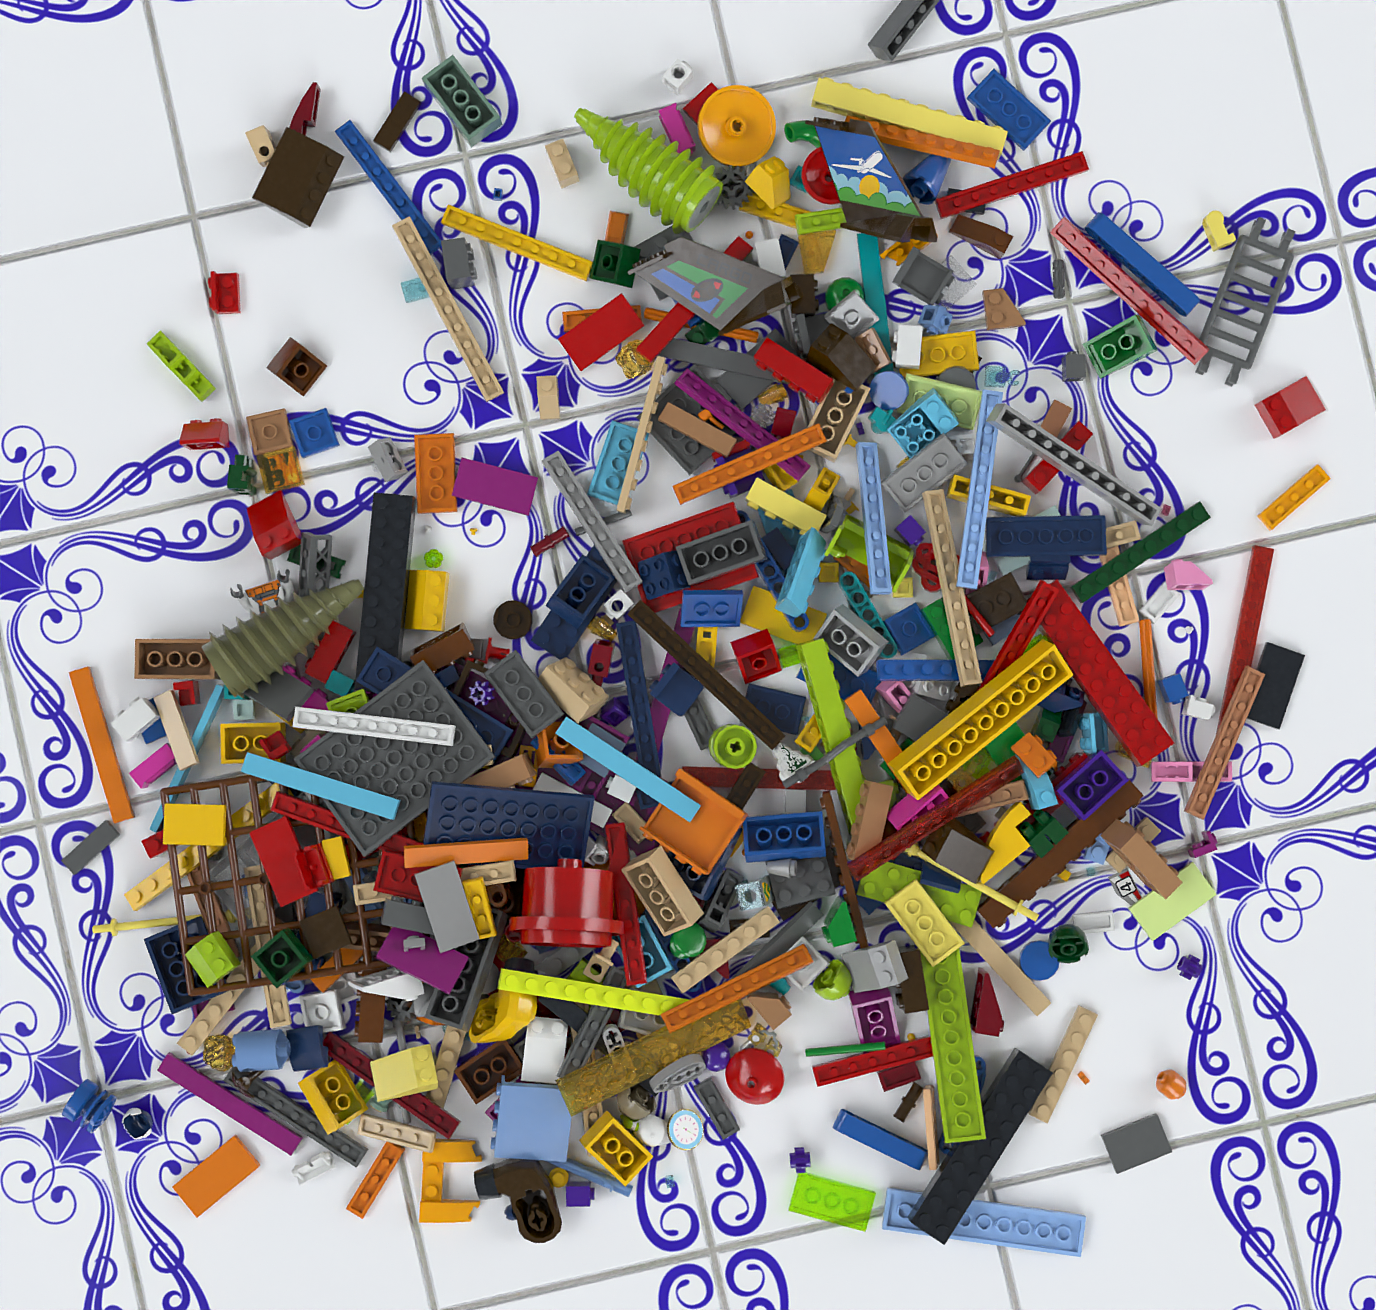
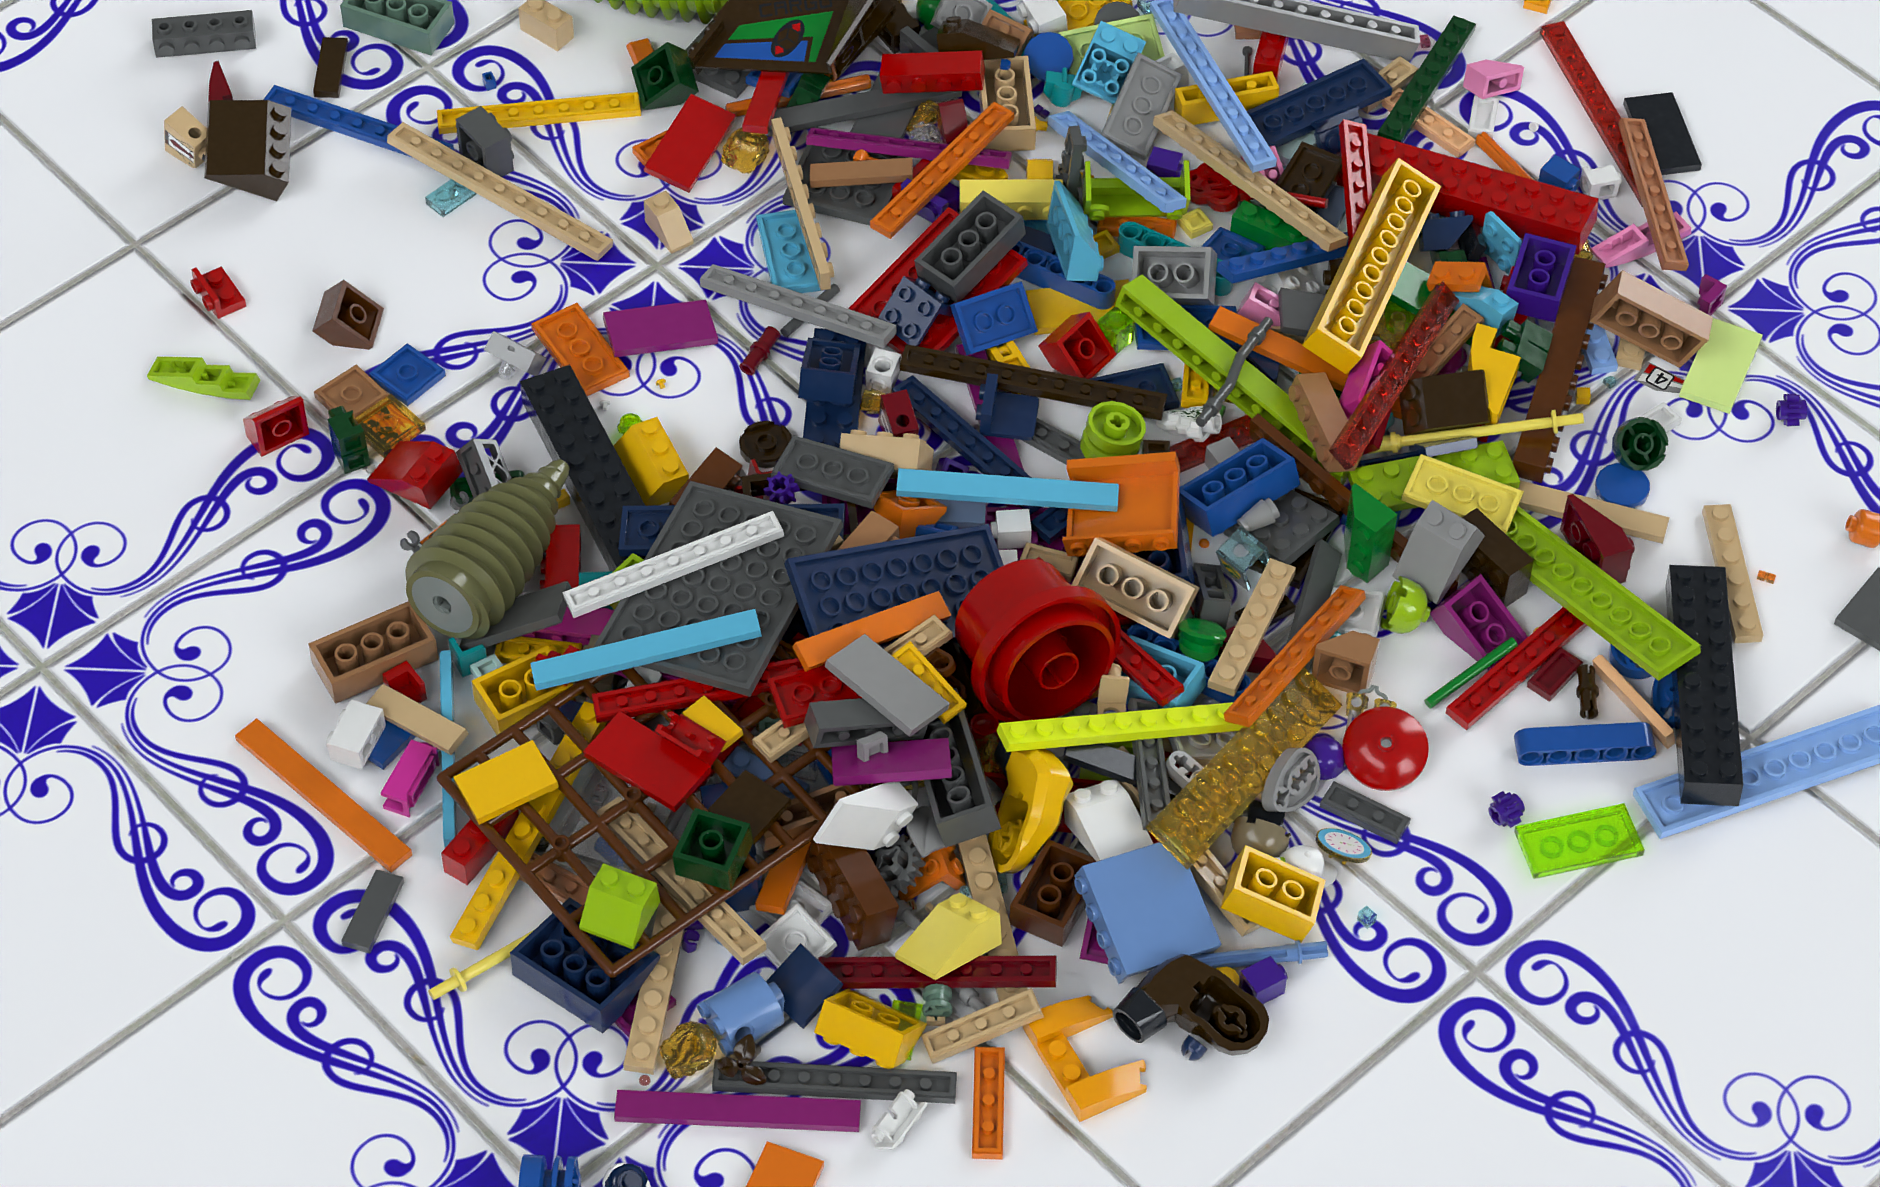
camera: 30 degrees left, 35 degrees down
(323, 44) = (203, 33): none -> dark grey brick

